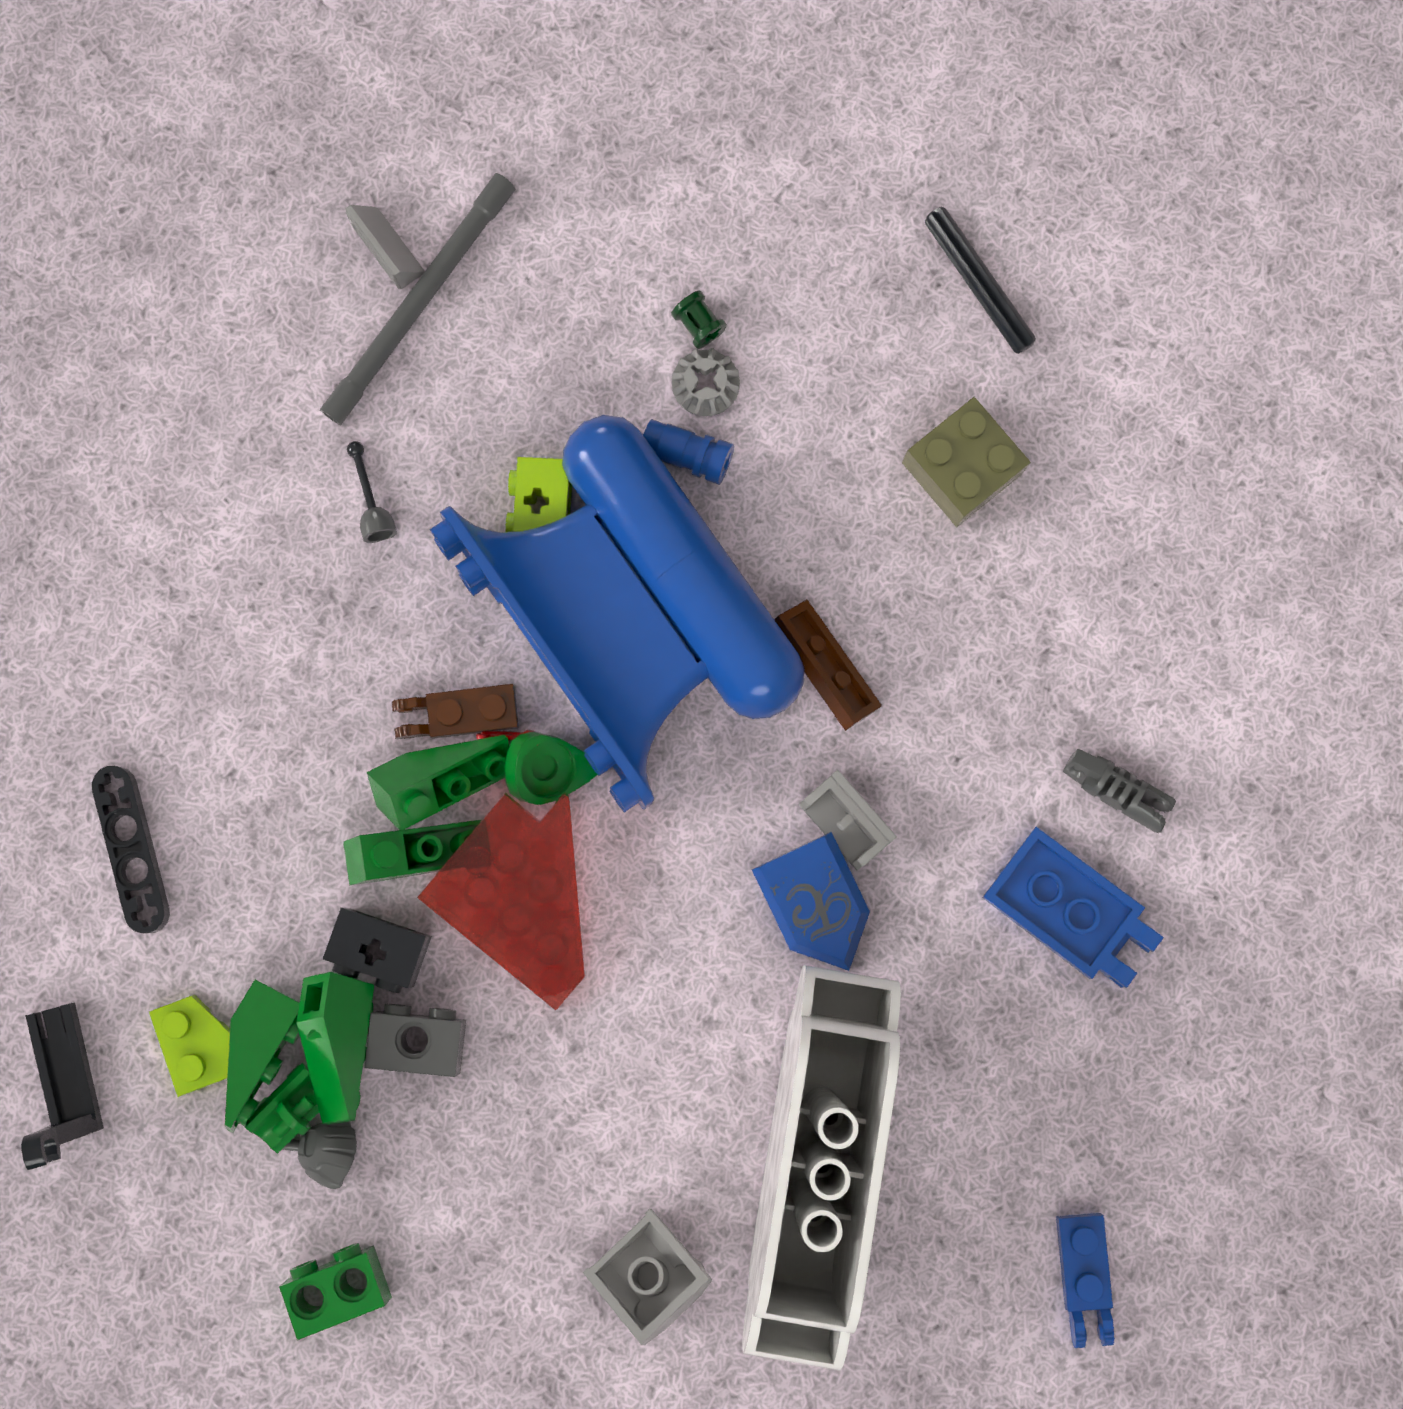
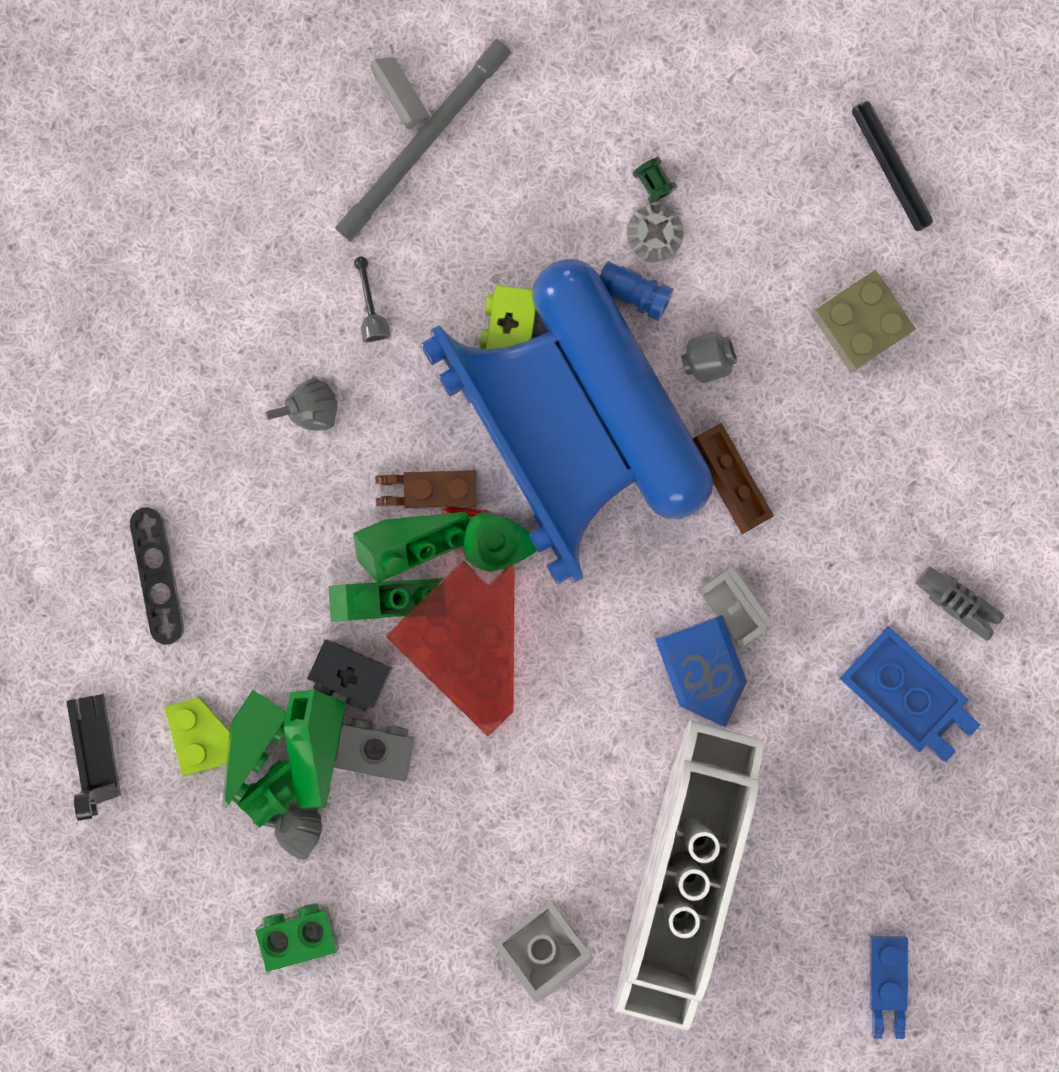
camera: 15 degrees right, 5 degrees up
(304, 625) = (309, 406): none -> dark grey piece
(784, 521) = (709, 357): none -> dark grey head

